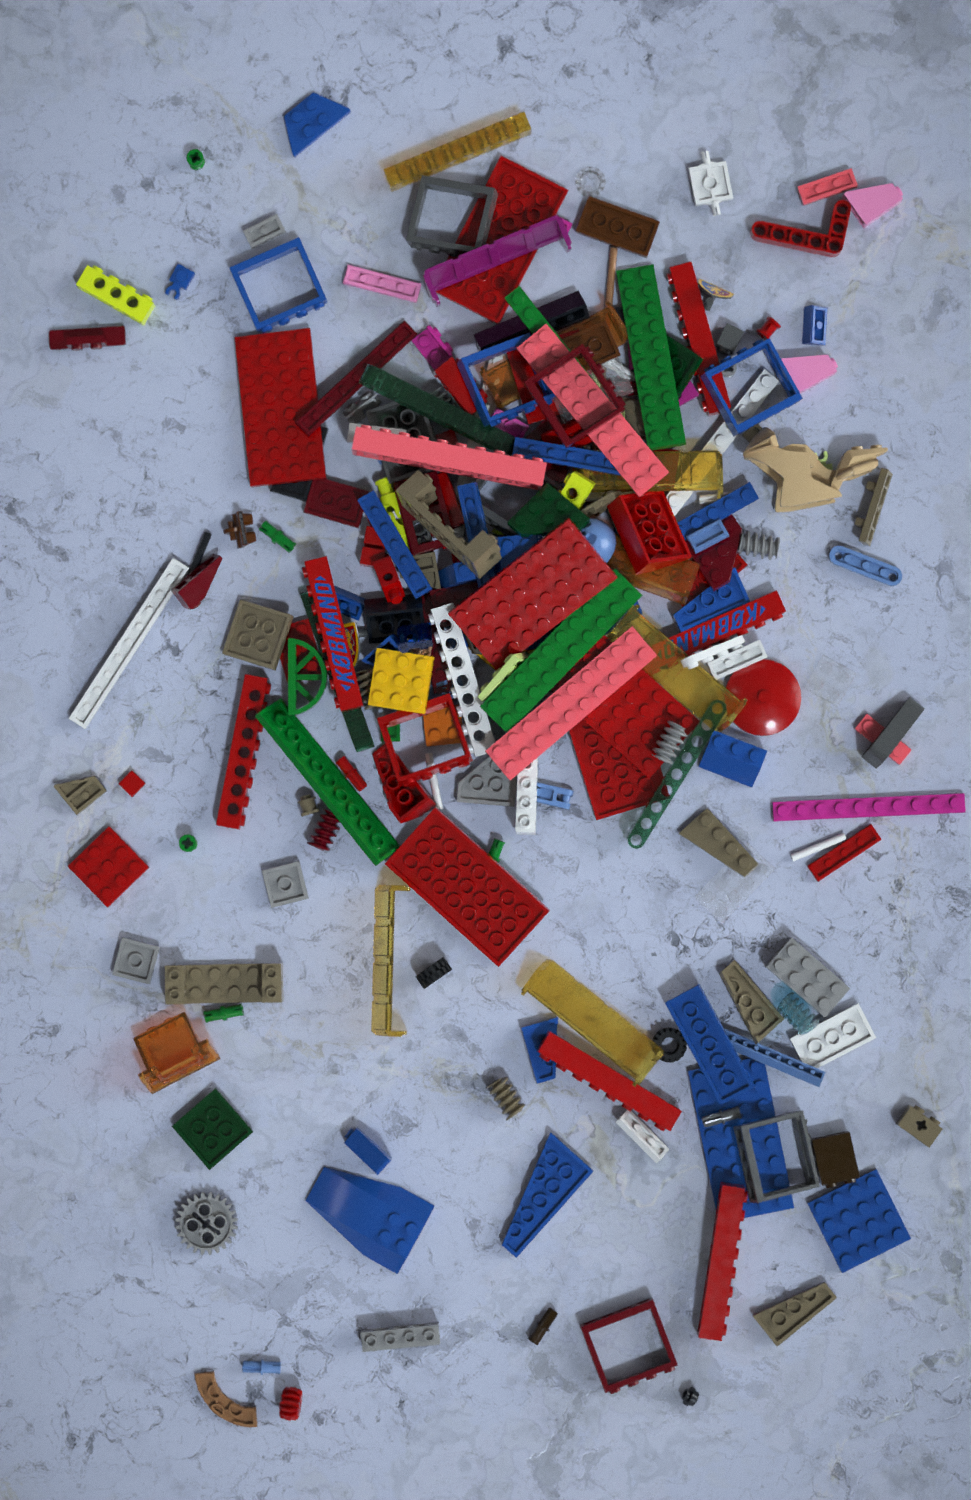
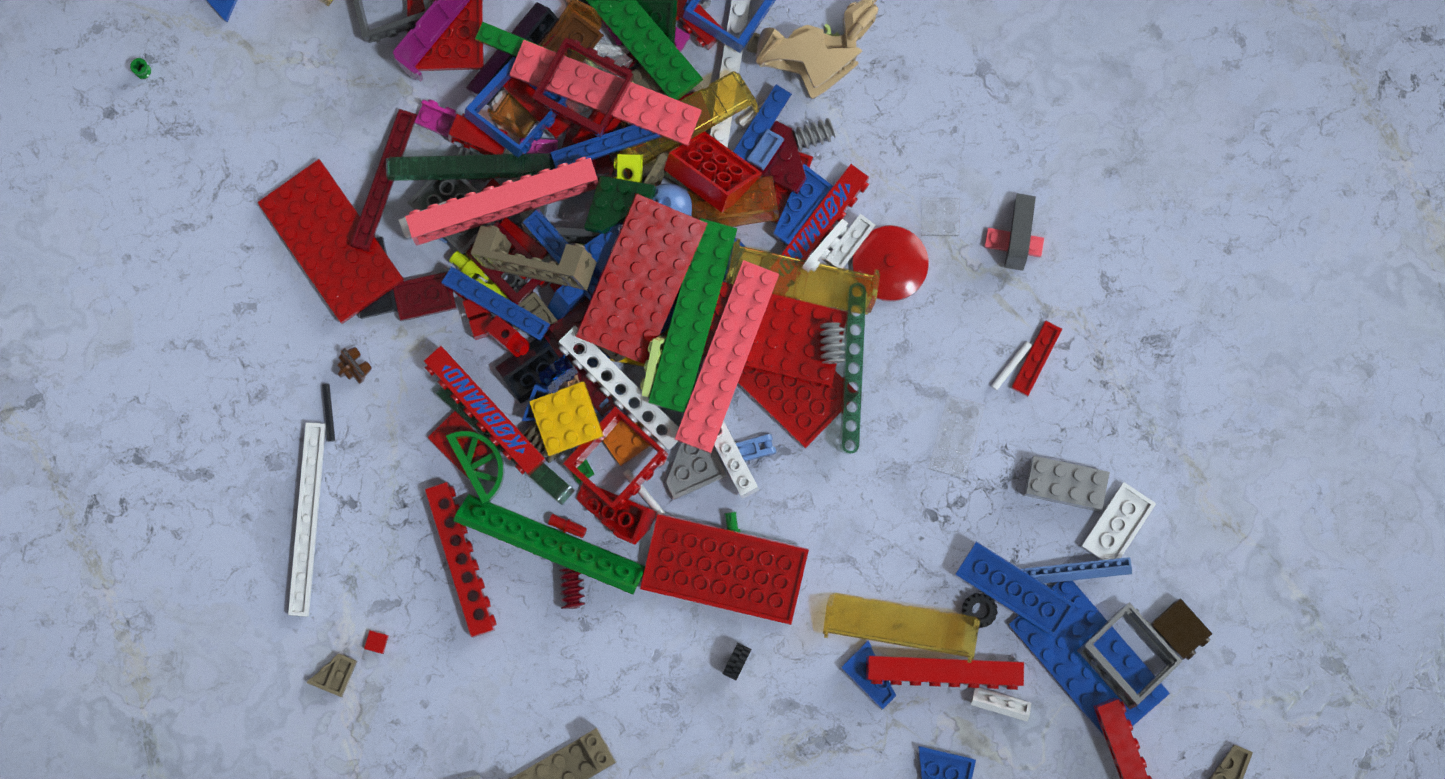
camera: 30 degrees left, 5 degrees down
(87, 338) = (126, 273): dark red bracket -> none
(108, 866) = (395, 728): red plate -> none
(139, 313) = (161, 226): neon yellow brick -> none
(181, 279) = (183, 178): blue plate -> none
(185, 838) = (449, 664): green bush -> none
(196, 585) = (339, 434): dark red slope -> none
(257, 634) = (417, 449): dark tan plate -> none
(264, 231) = (234, 98): light grey plate -> none
(265, 258) = (248, 120): blue window -> none
(277, 536) = (389, 354): green pin -> none
(285, 884) = (561, 656): light grey plate -> none
(308, 805) = (544, 574): dark tan brick -> none
(350, 603) = (485, 378): blue slope -> none
(353, 638) = (505, 406): shield -> none
(355, 410) = (398, 208): light grey hinge -> none
(382, 283) = (362, 88): bright pink tile -> none
(383, 965) = (685, 672): clear yellow piece -> none
(506, 1097) = (862, 736): dark tan piece -> none
(718, 842) = (921, 408): dark tan wing -> none
(721, 1117) = (1061, 648): dark grey axle -> none
(732, 758) = (894, 329): blue slope -> none
(751, 1003) = (1032, 534): dark tan wing -> none
(796, 1015) = (1076, 522): clear light blue piece -> none
(859, 1221) = (1232, 673): blue plate -> none
(865, 565) = (915, 102): medium blue plate -> none
(868, 807) = (1035, 307): dark pink plate -> none
(870, 522) = (891, 31): dark tan hinge -> none
(908, 1123) = (1226, 562): dark tan brick -> none

